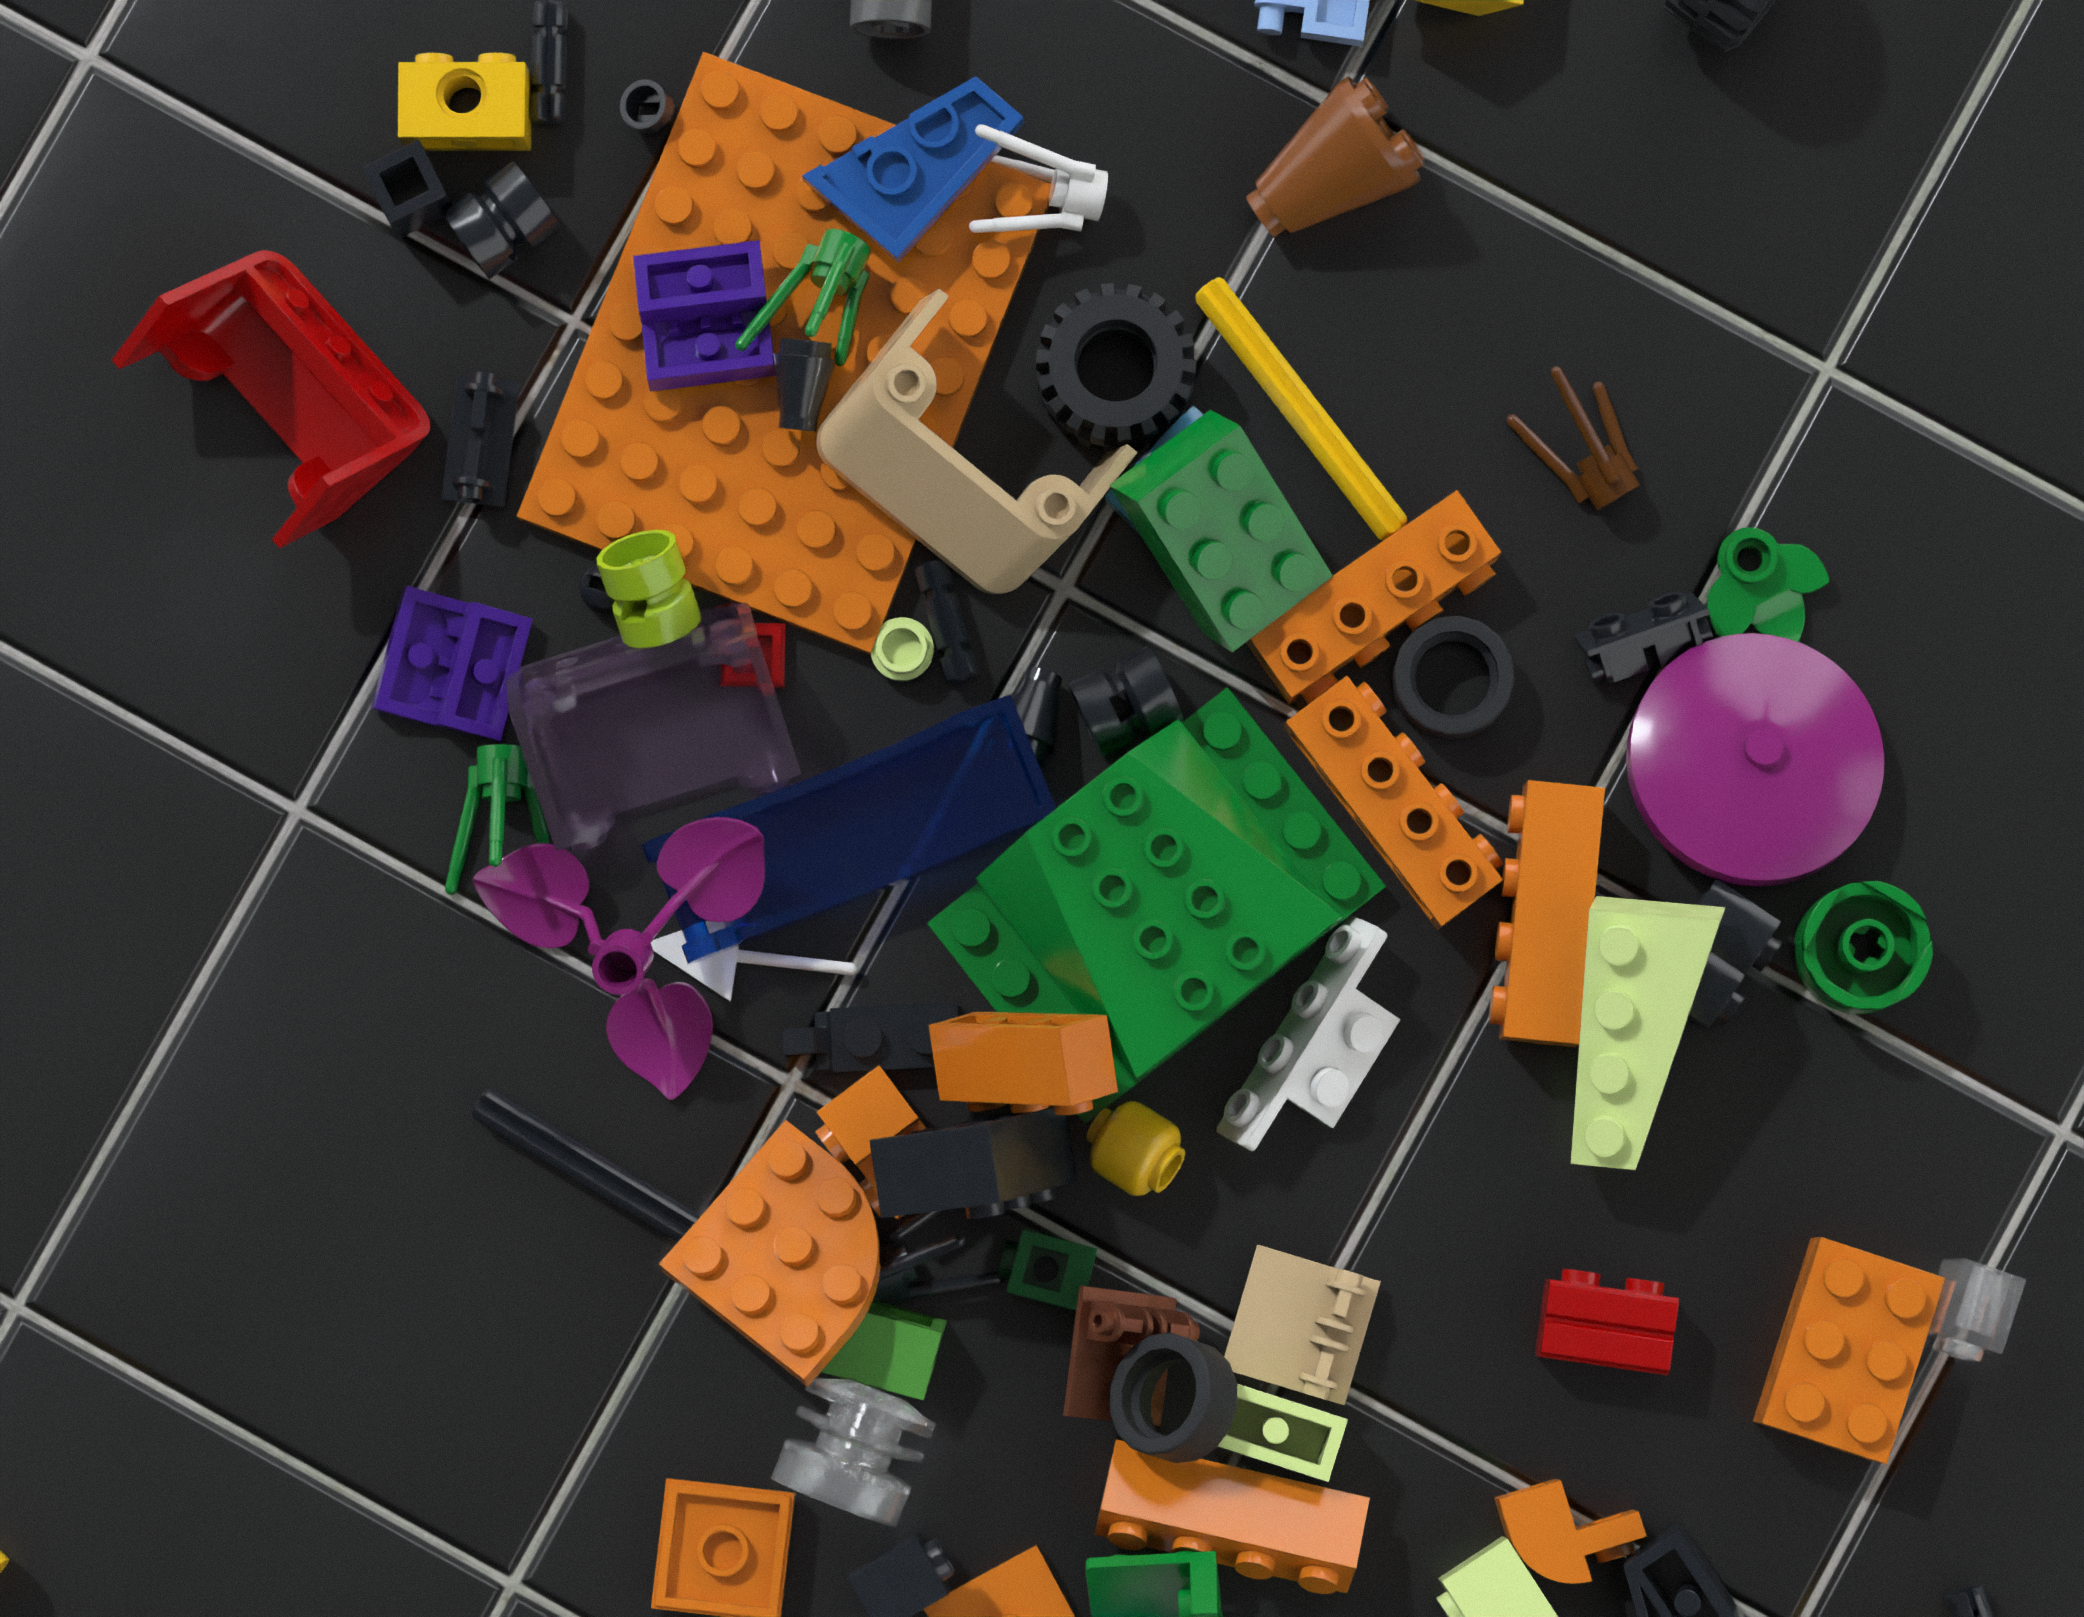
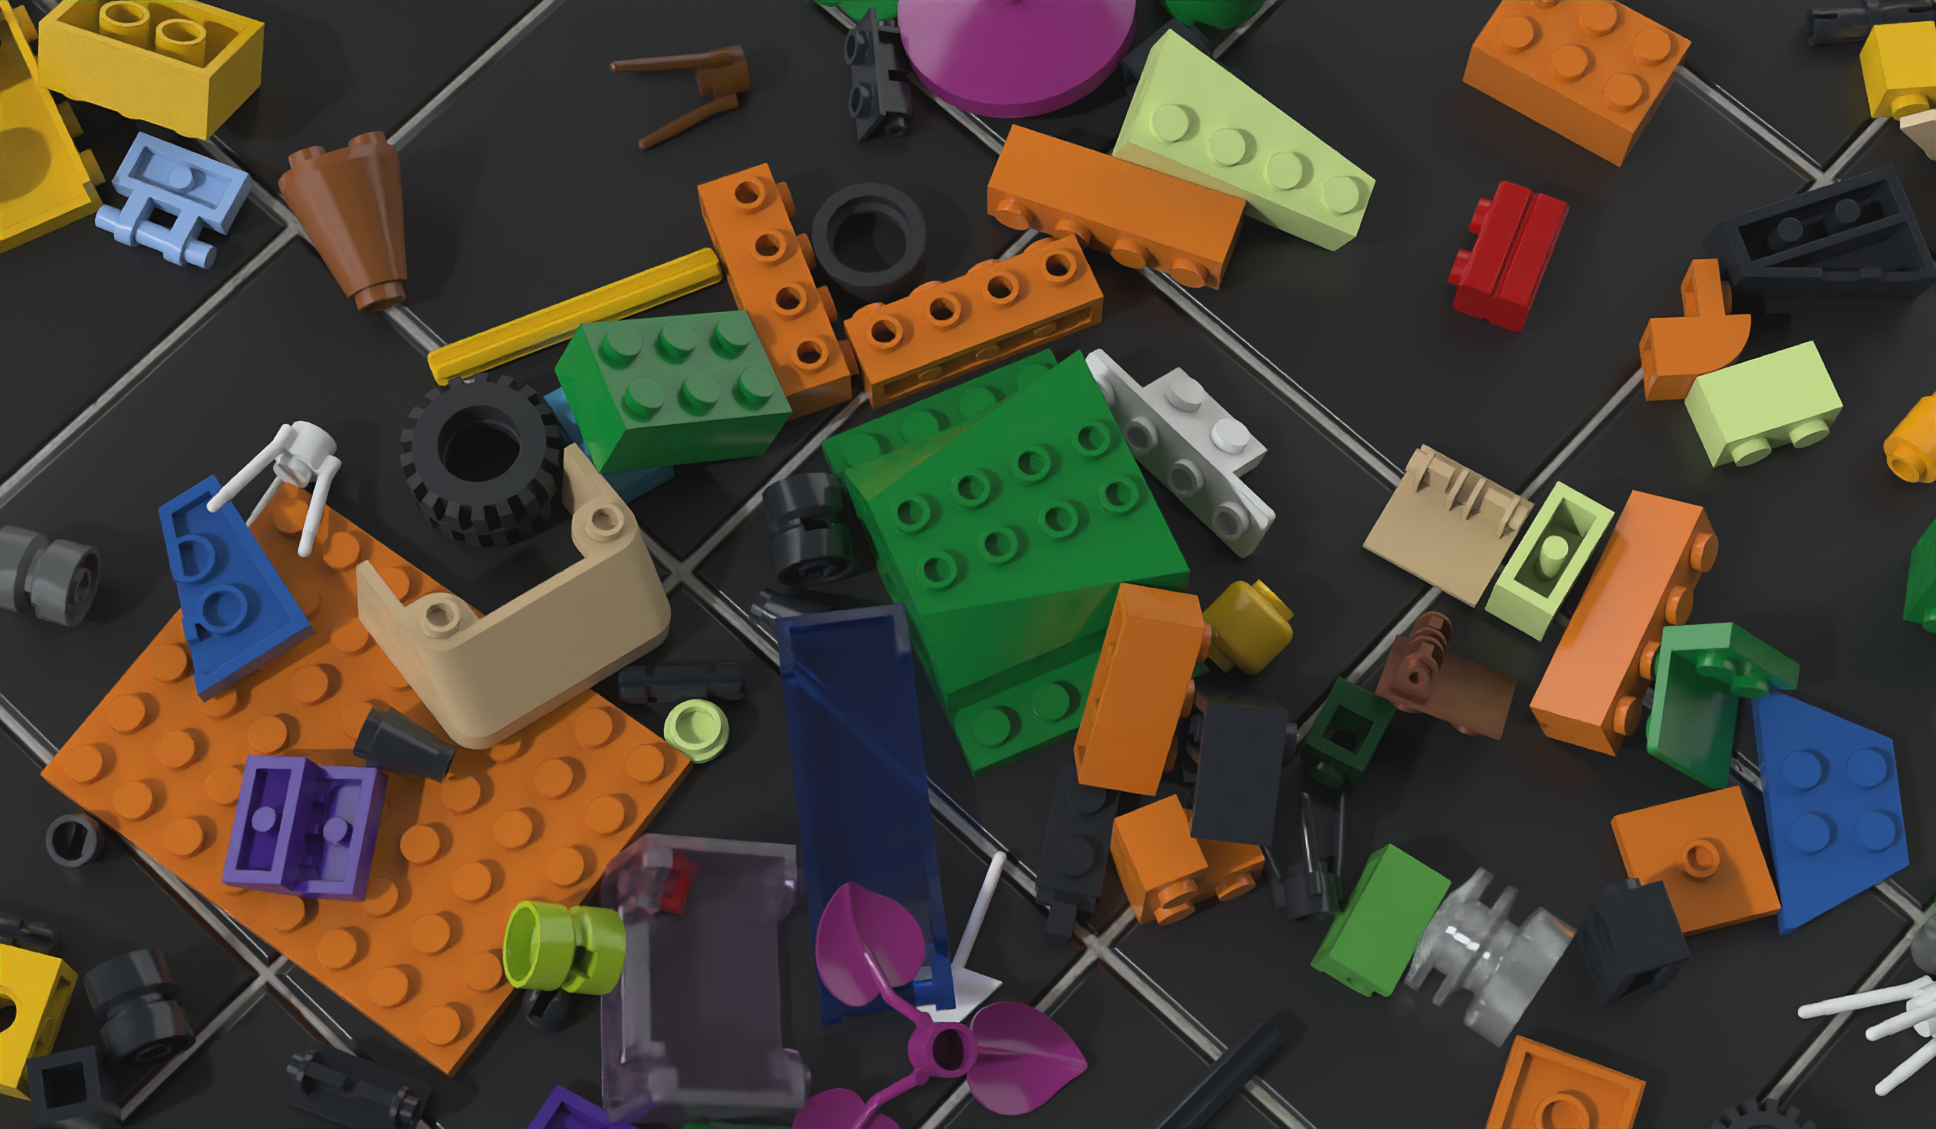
camera: 80 degrees left, 15 degrees down
(785, 1254) = (1277, 975): orange plate -> none
(836, 268) = (303, 686): green plant -> none
(1135, 1385) = (1478, 673): black tyre -> none

